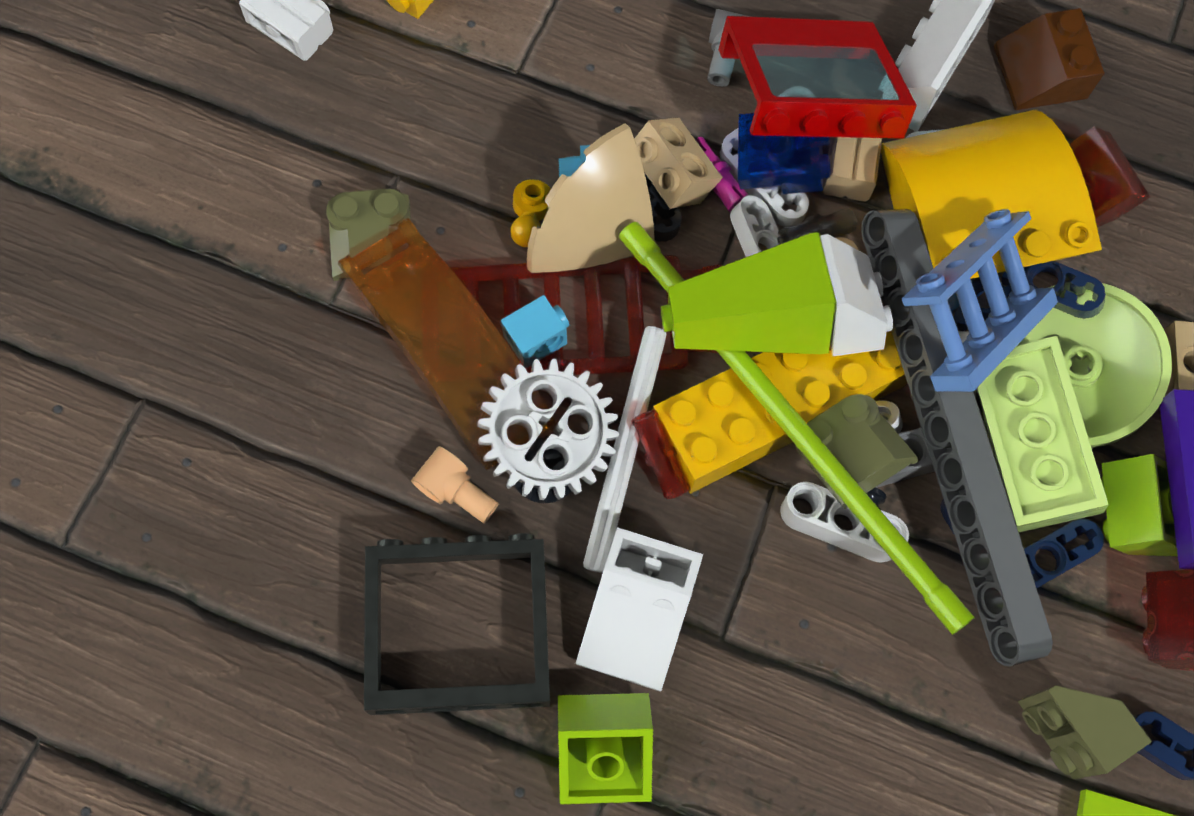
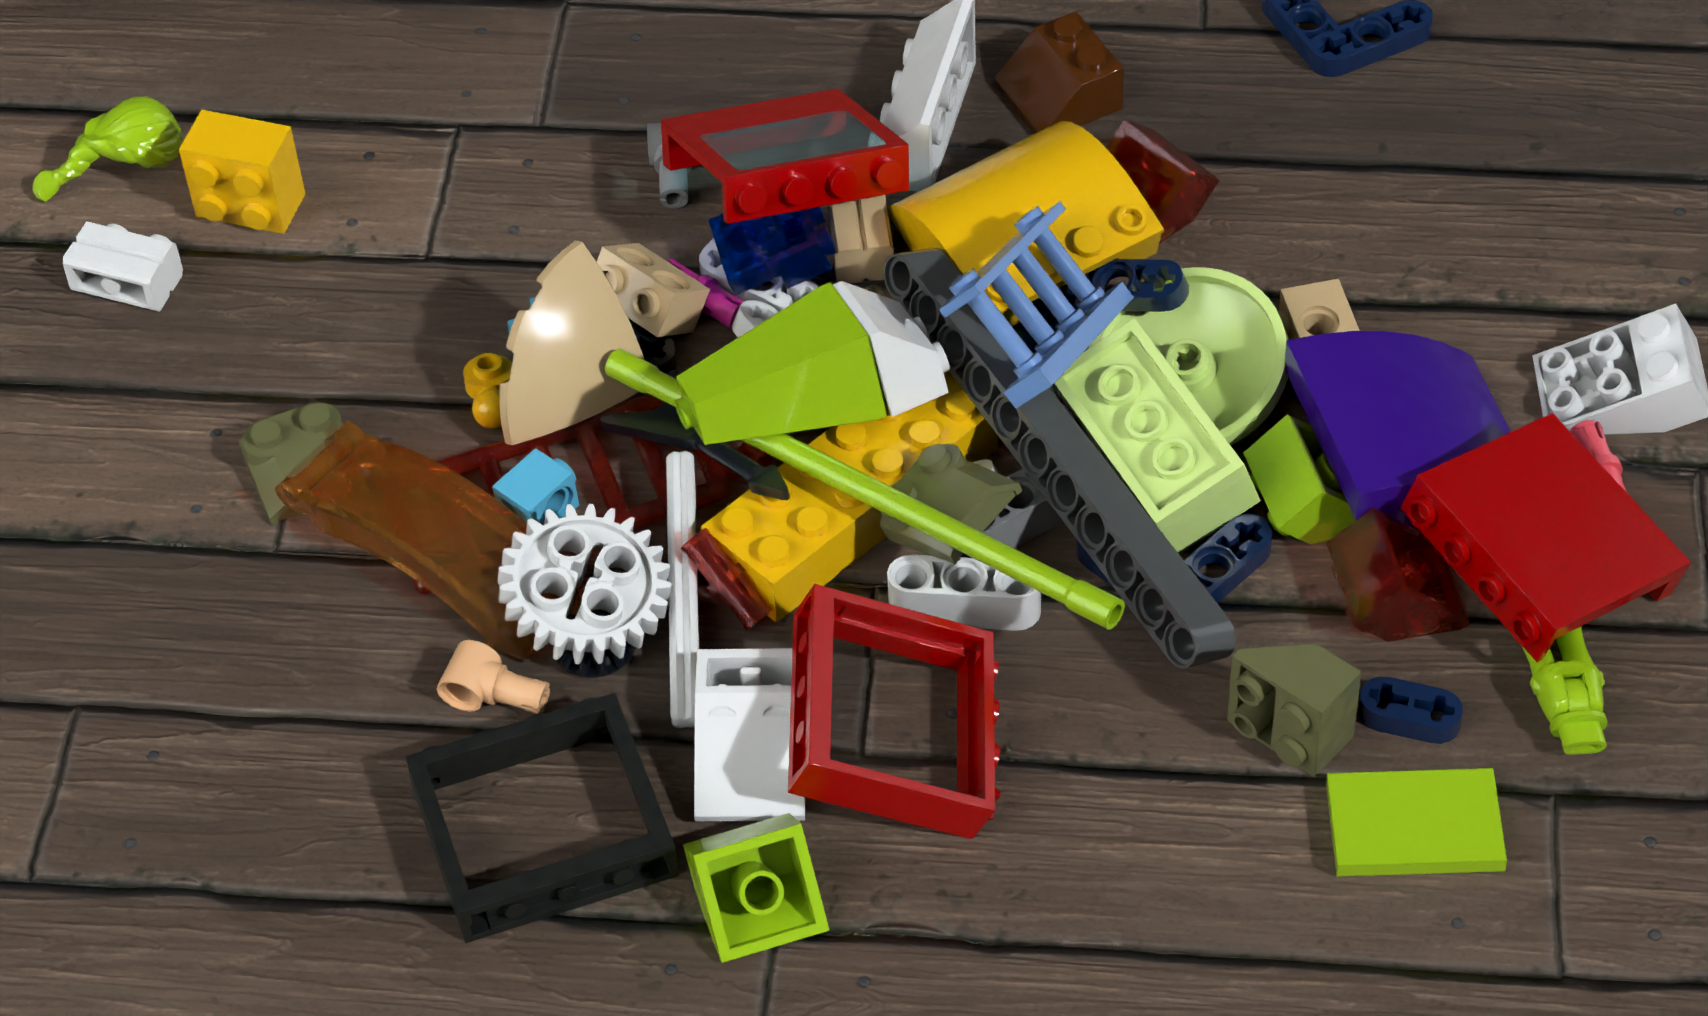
camera: 10 degrees left, 20 degrees down
(650, 297) = (666, 428): none -> black piece
(695, 614) = (911, 634): none -> red window

